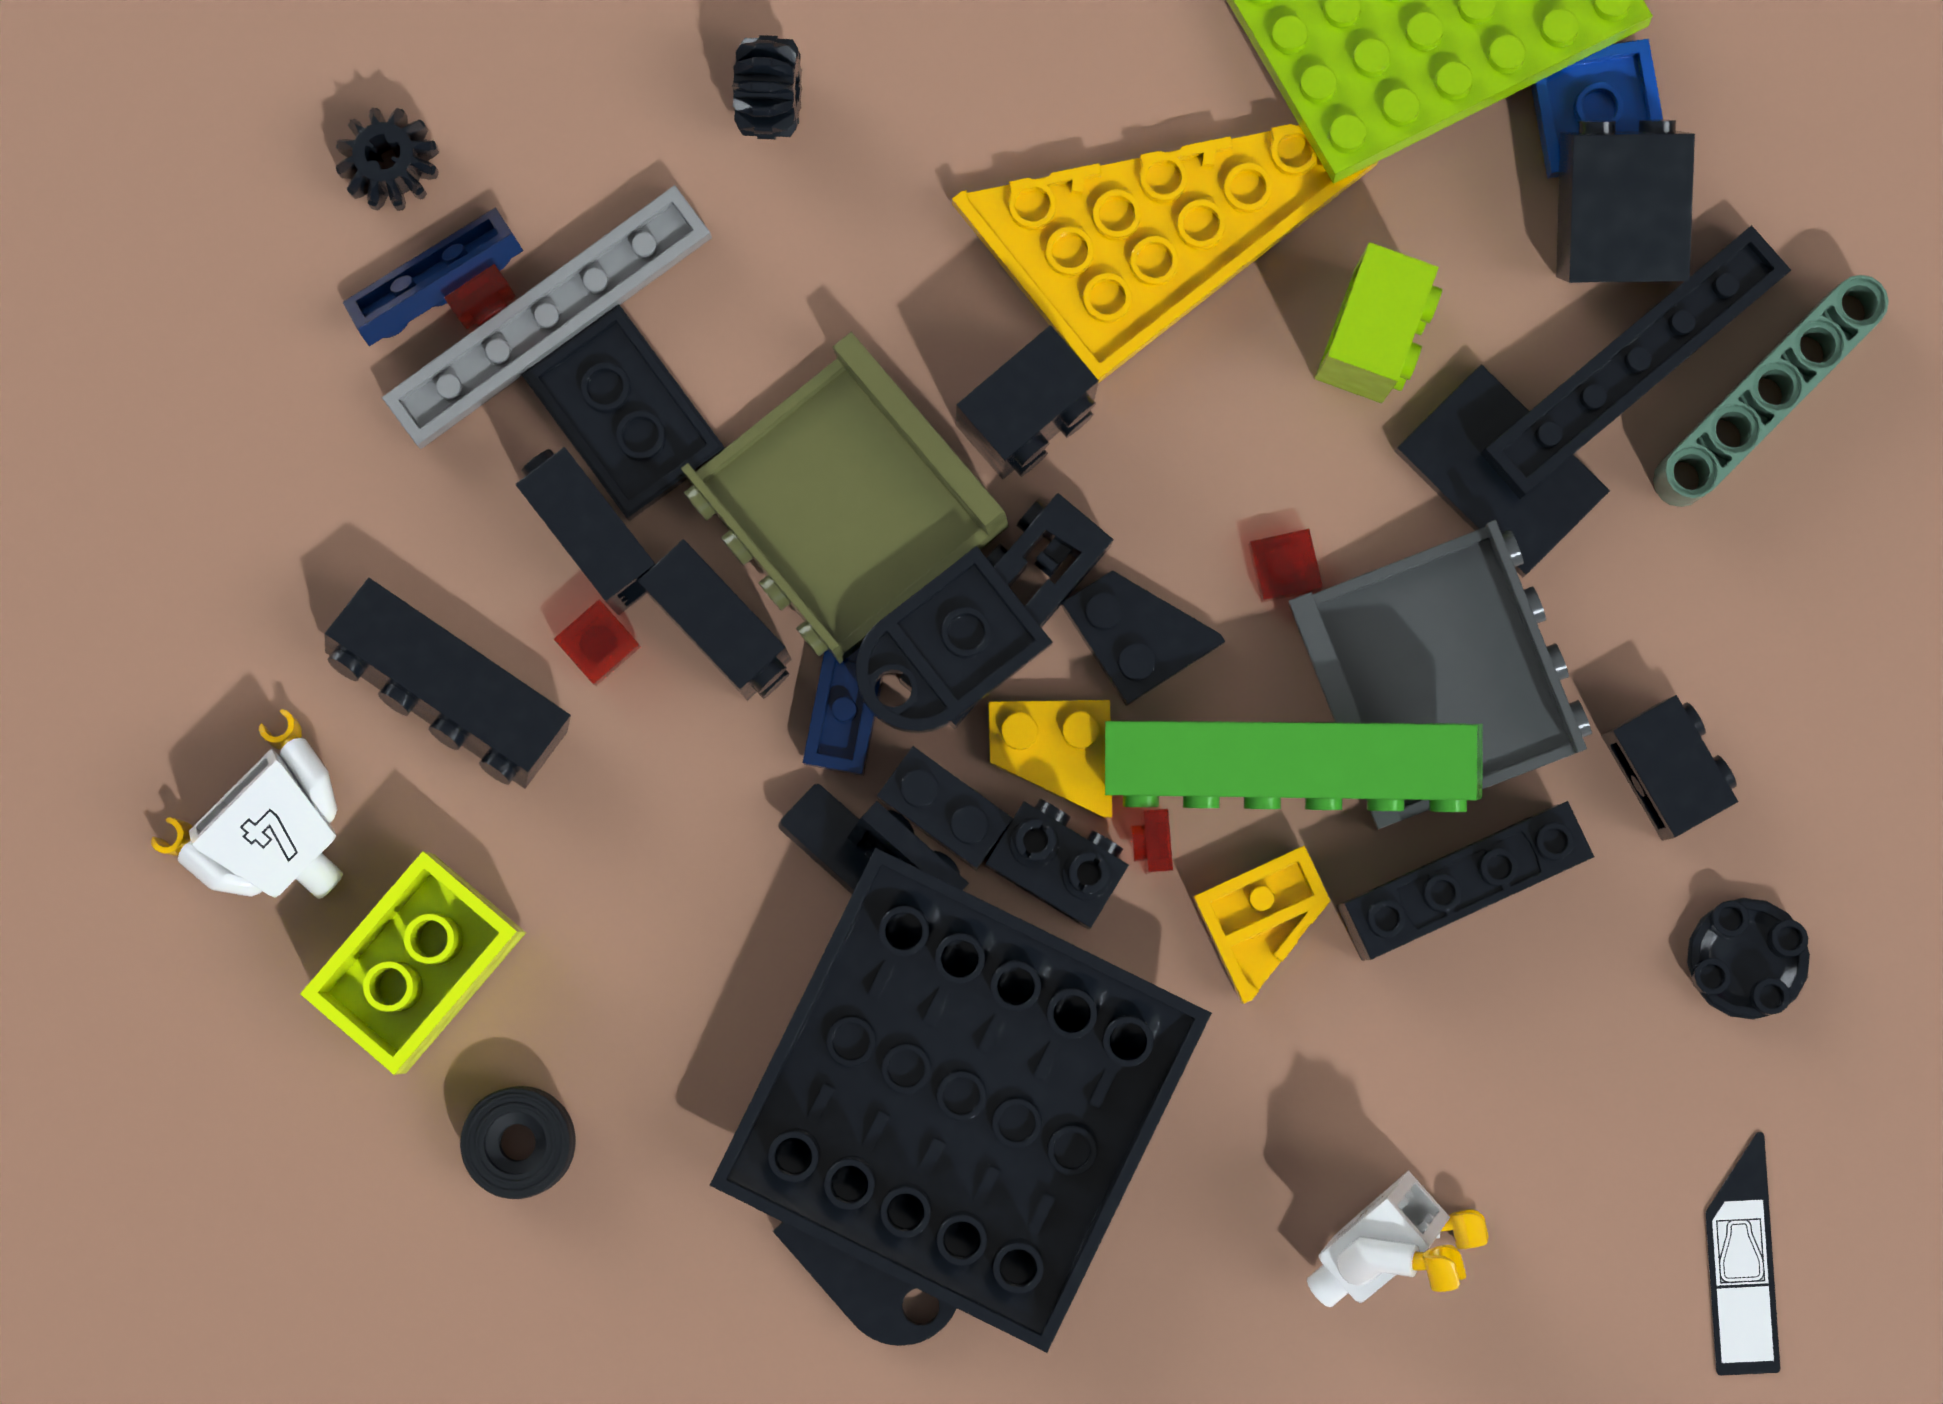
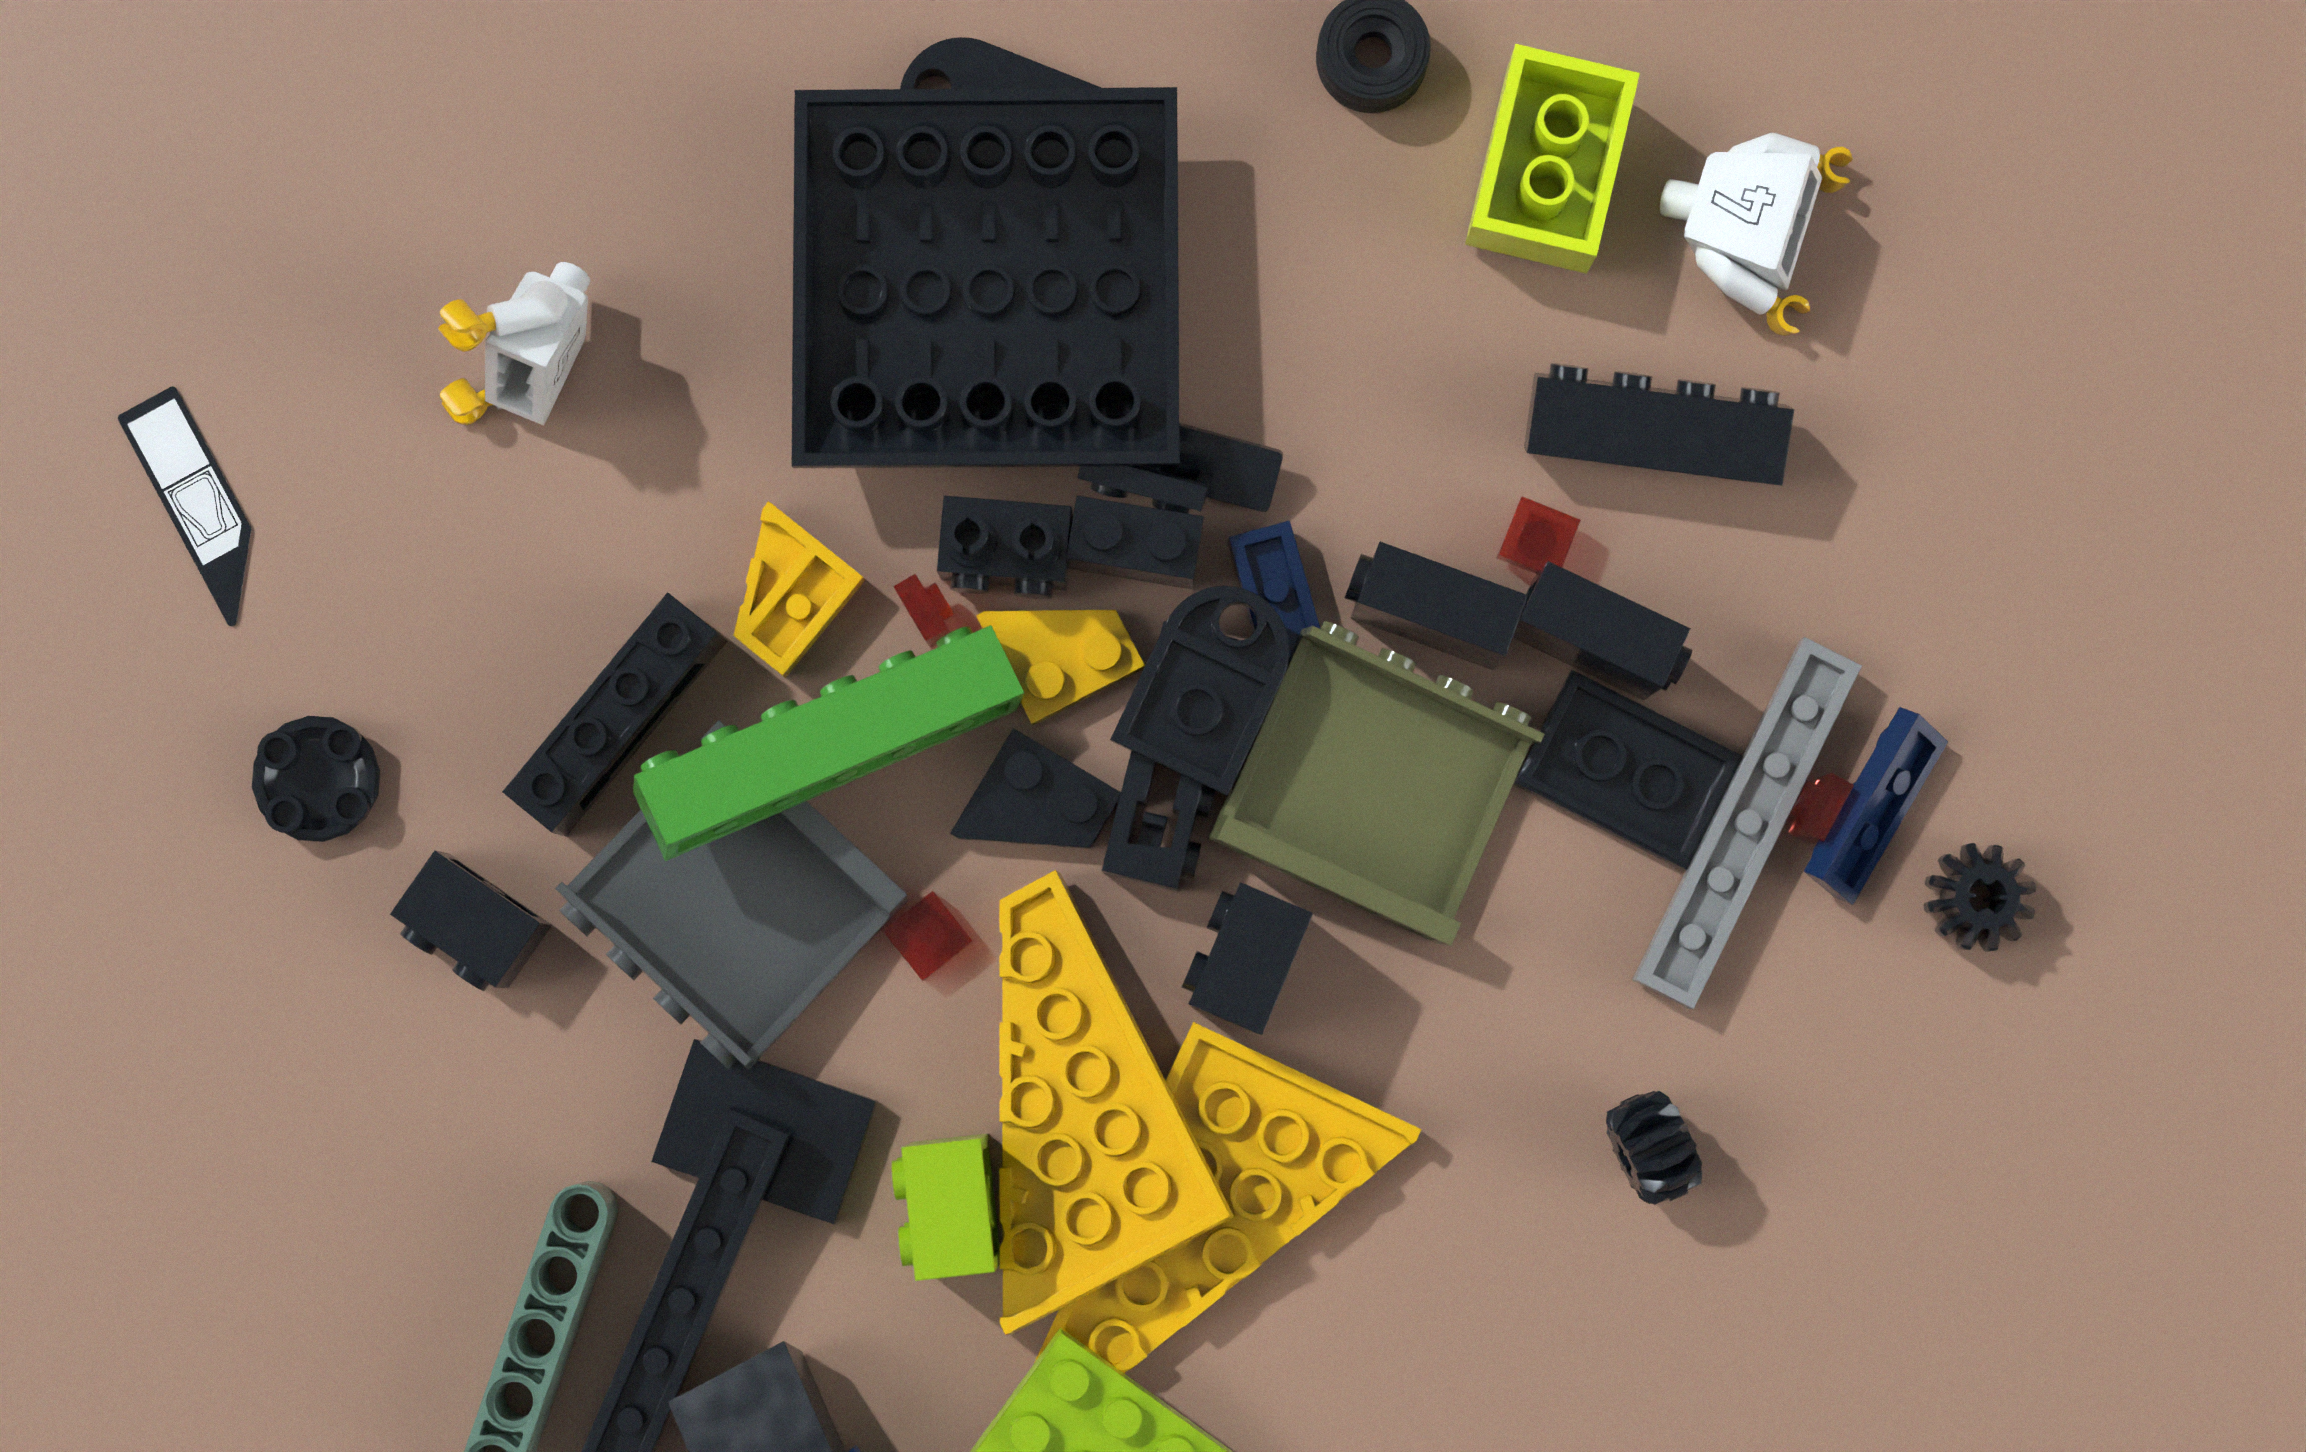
camera: 160 degrees right, 0 degrees up
(1229, 324) = (1091, 1134): none -> yellow wing

